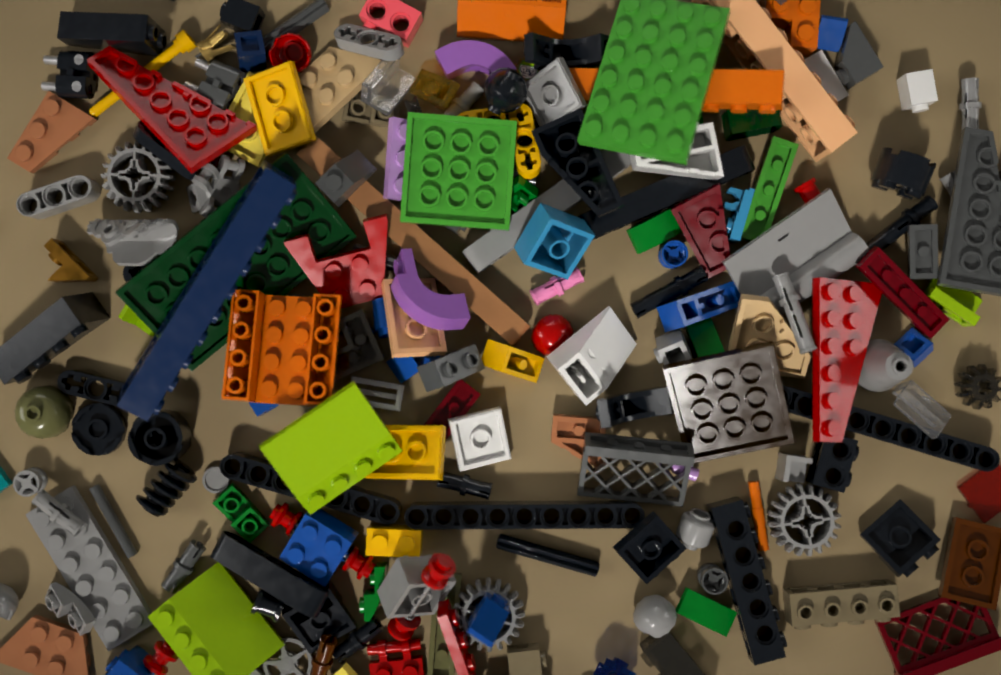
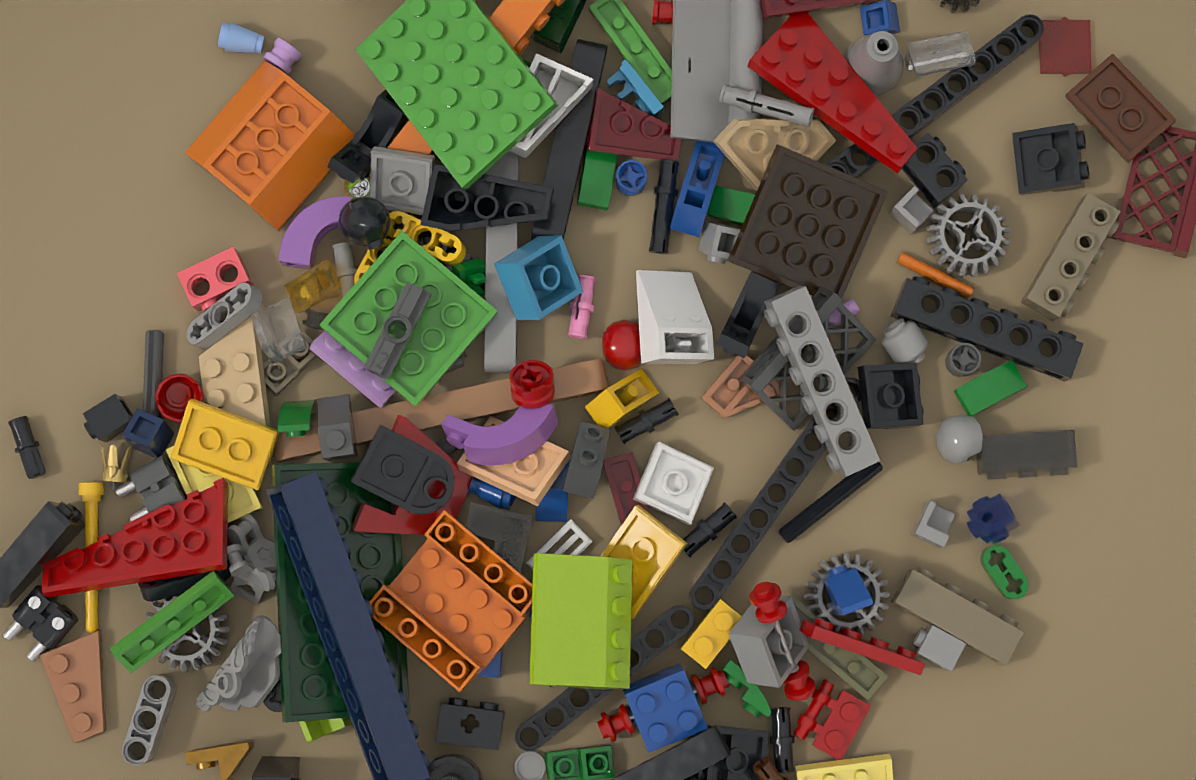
camera: 50 degrees left, 5 degrees down
(129, 163) = (172, 622): none -> bright green plate
(202, 409) = (452, 731): none -> black brick
(334, 144) = (296, 417): none -> green slope
(347, 245) = (402, 471): none -> black plate
(461, 167) = (405, 312): none -> dark grey piece
(474, 291) = (532, 384): none -> red wheel
(509, 388) = (646, 421): none -> black pin
(581, 638) = (933, 524): none -> light grey panel
(595, 554) = (860, 450): none -> light grey brick

